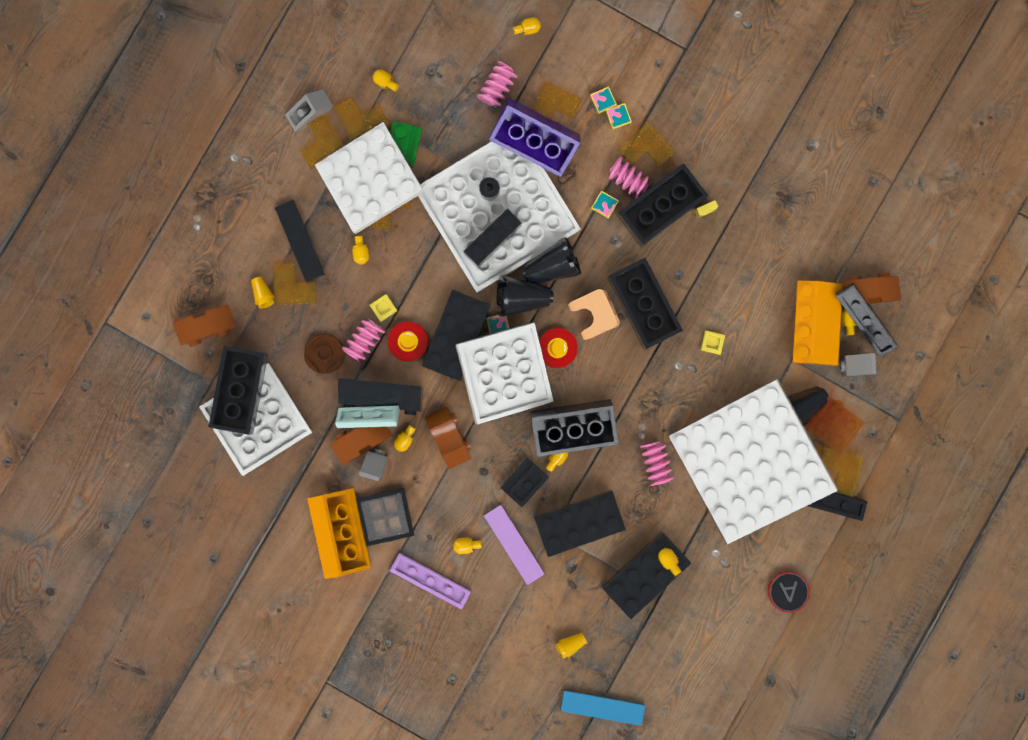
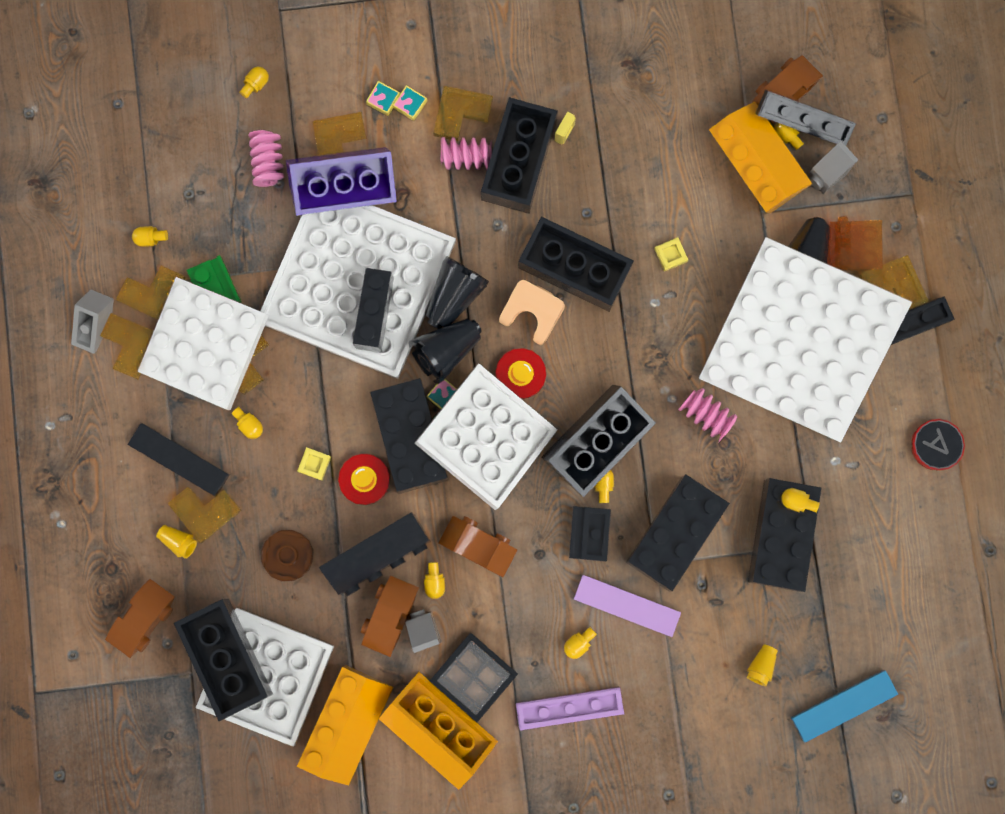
camera: 30 degrees left, 5 degrees down
(283, 487) = (345, 726): none -> light orange slope
(364, 339) = (316, 511): bright pink piece -> none
(367, 416) = (378, 586): light aqua tile -> none
(489, 195) = (337, 269): black brick -> none
(604, 204) = (461, 198): tile -> none

